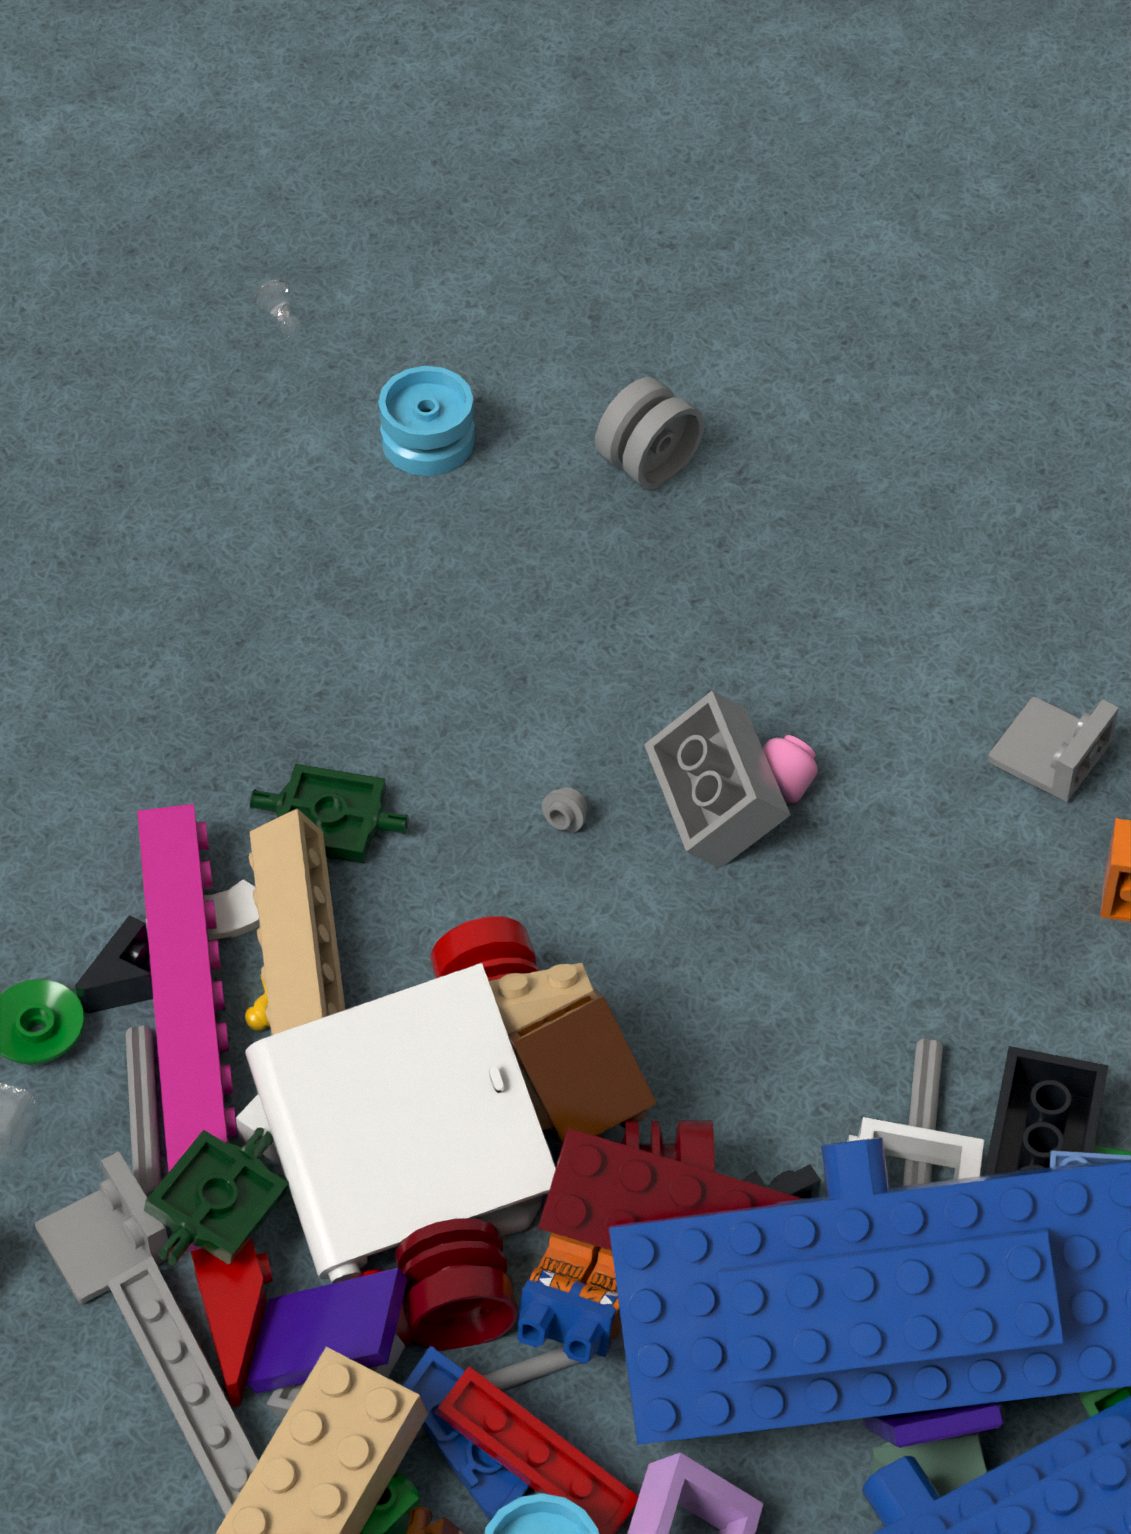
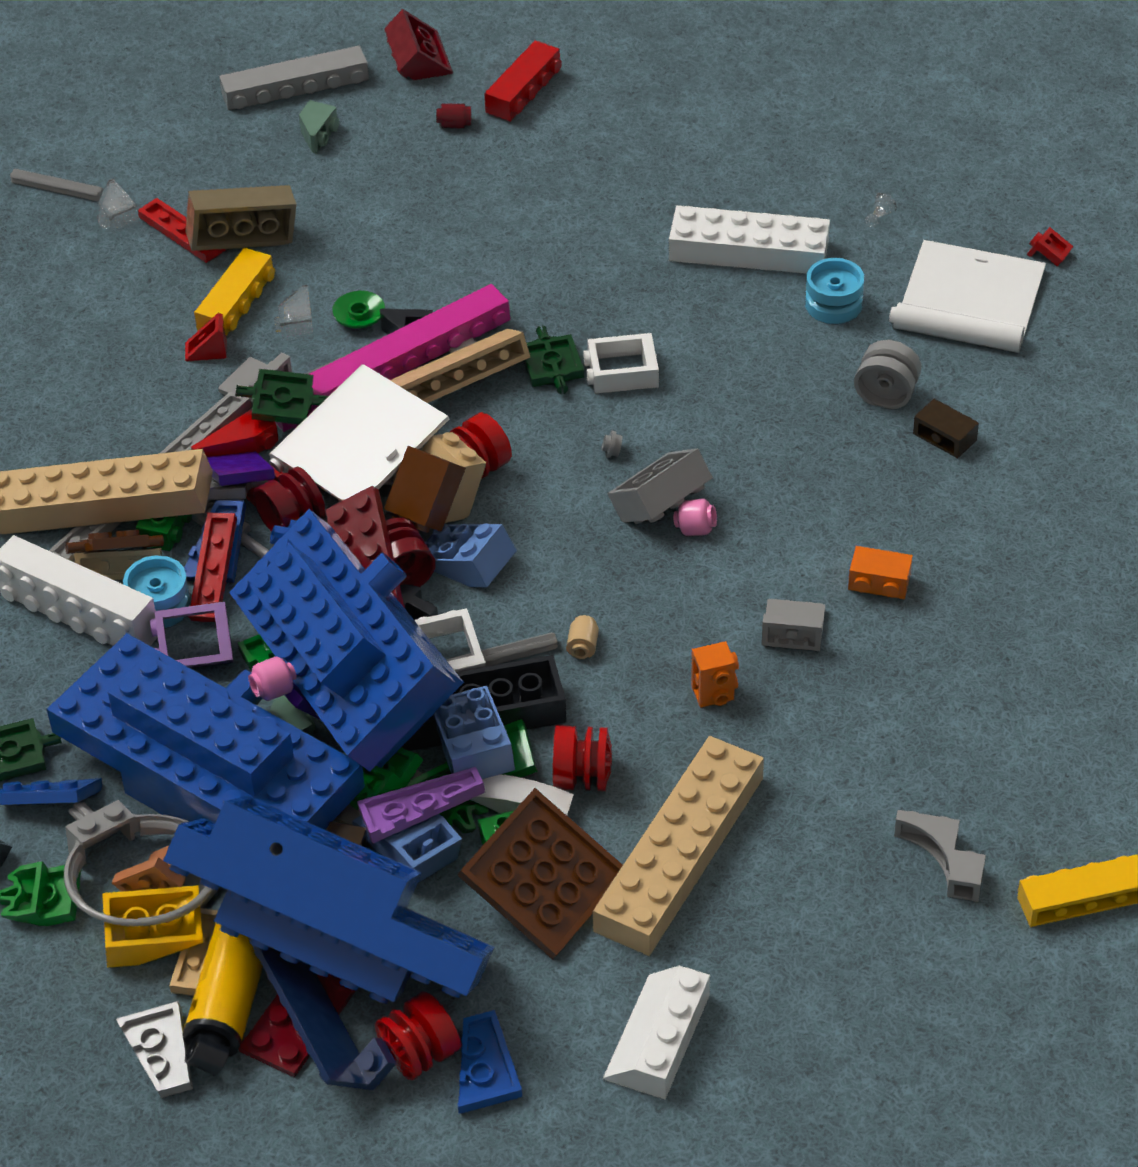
camera: 65 degrees right, 5 degrees down
(241, 473) = (747, 239): none -> white brick
(412, 692) = (623, 378): none -> white window
(486, 167) = (1050, 245): none -> red bracket
(521, 292) = (969, 296): none -> white door
(700, 1075) = (471, 552): none -> medium blue slope
(752, 1465) = (254, 651): none -> green plate
(774, 423) = (945, 428): none -> dark brown brick
(951, 1006) = (582, 637): none -> tan brick
(953, 1429) = (272, 678): none -> bright pink head
(1018, 608) = (880, 572): none -> orange brick

